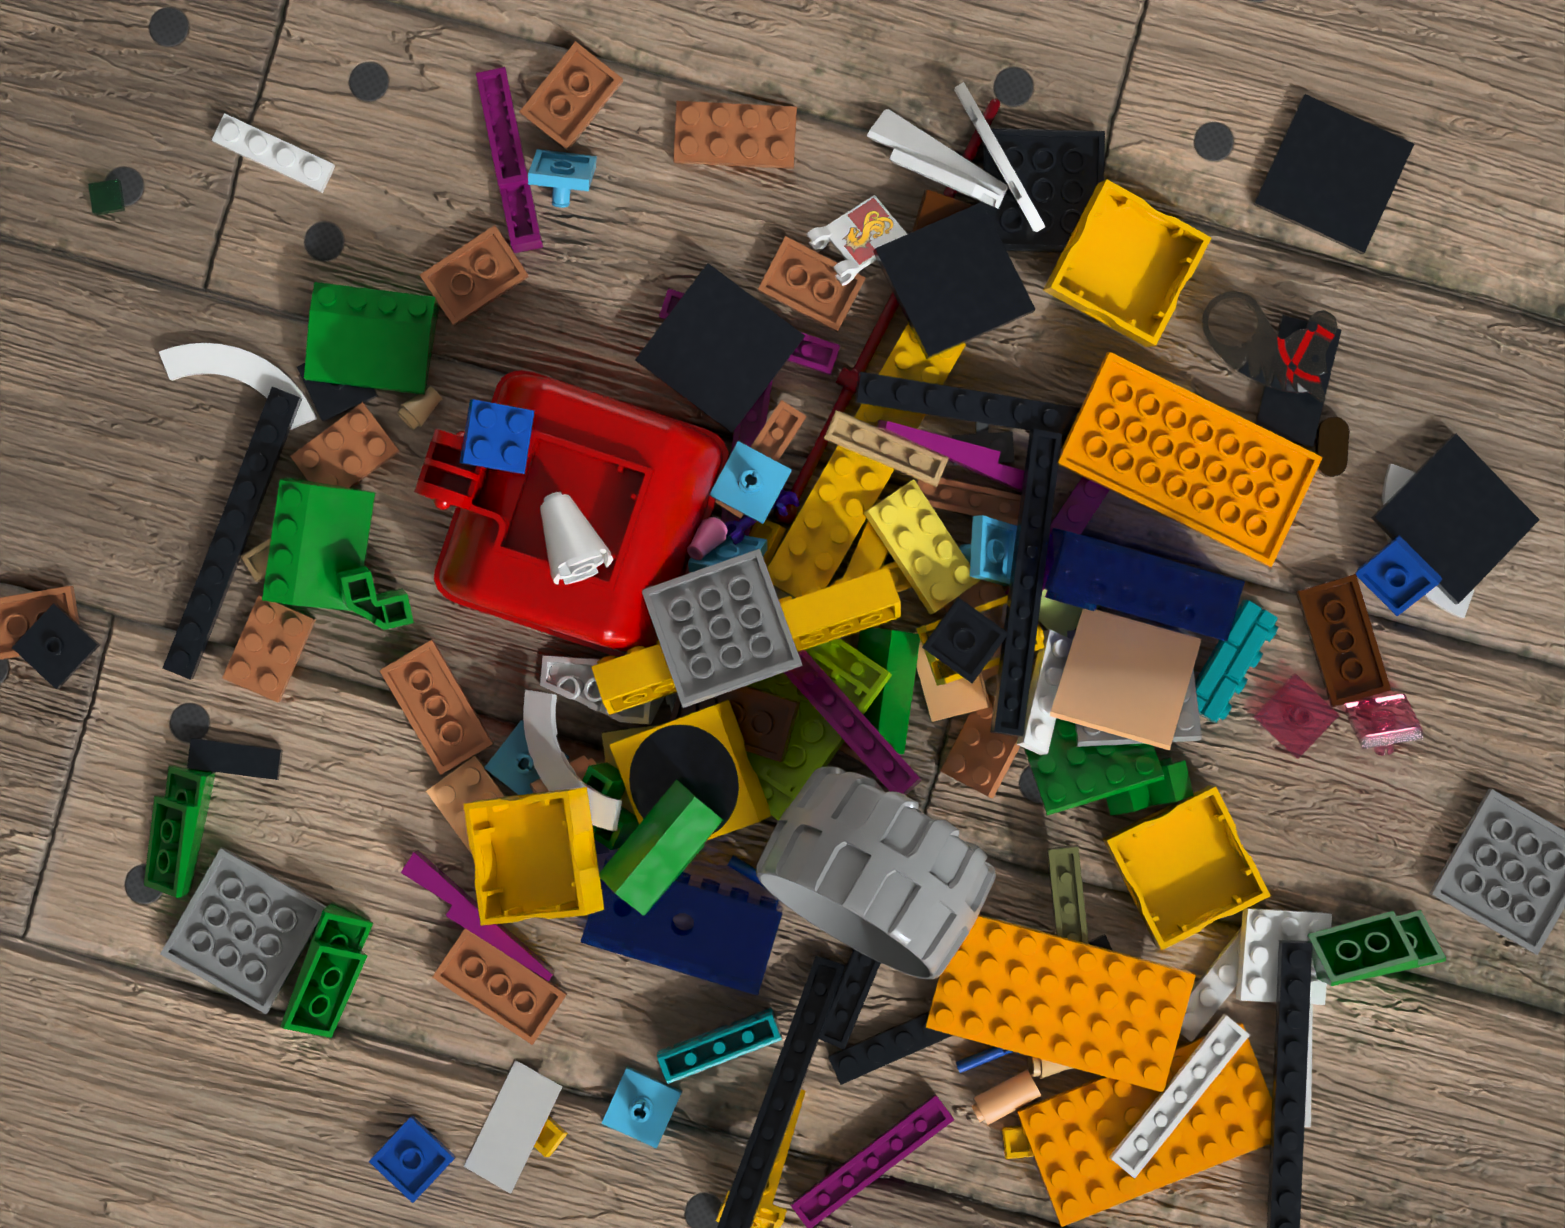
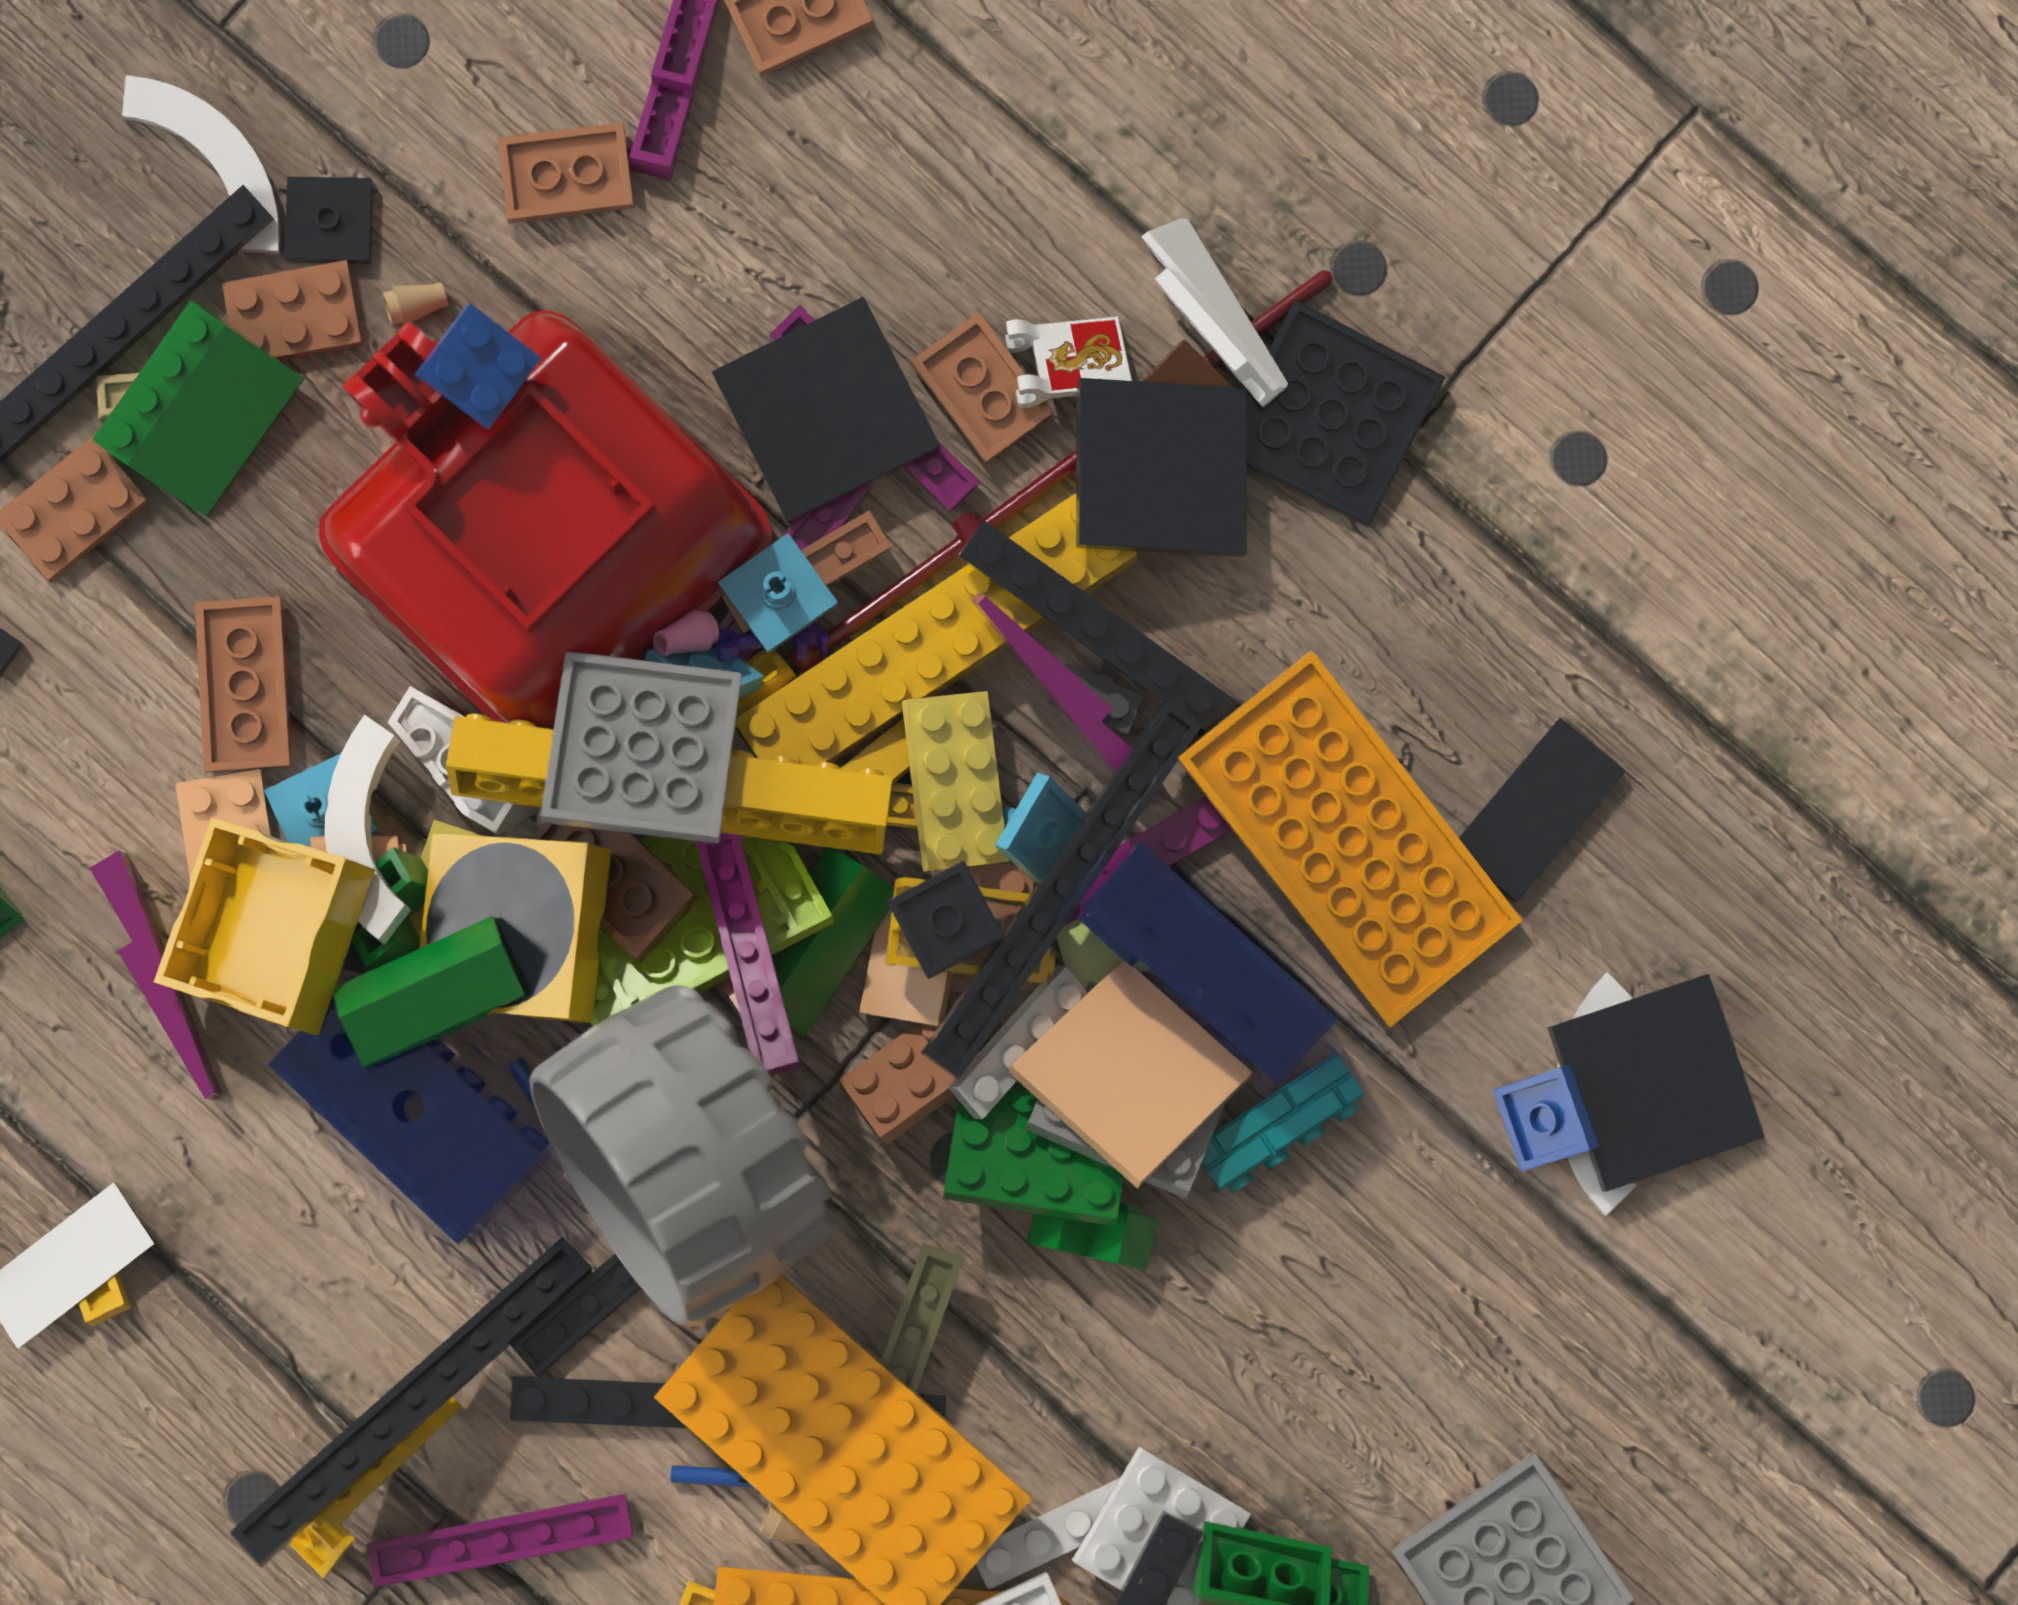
camera: 25 degrees right, 5 degrees down
(370, 338) = (396, 184): green slope -> none
(383, 609) = (236, 528): green brick -> none
(499, 986) = (141, 1077): nougat plate -> none
(562, 172) = (739, 99): medium azure tile -> none
(571, 541) = (503, 540): white cone -> none
(641, 1107) = (242, 1322): medium azure tile -> none
(719, 1045) = (379, 1290): teal brick -> none
(735, 134) = (979, 158): nougat plate -> none
(886, 448) = (970, 634): tan tile -> none
(972, 500) = (1045, 751): nougat plate -> none
(999, 157) = (1293, 343): white tile -> none
(1006, 1097) = (713, 1542): light nougat brick -> none
(1126, 263) = (1391, 554): yellow tile -> none
(1186, 867) = (1092, 1358): yellow tile -> none
(1280, 364) = (1528, 777): clear smoke animal -> none
(1295, 716) = (1329, 1235): clear pink tile -> none
(1332, 446) = (1543, 914): dark brown tile -> none
(1333, 174) = (1710, 572): black tile -> none
(1343, 640) = (1436, 1168): reddish brown plate -> none
(1383, 722) = (1435, 1297): clear pink tile -> none

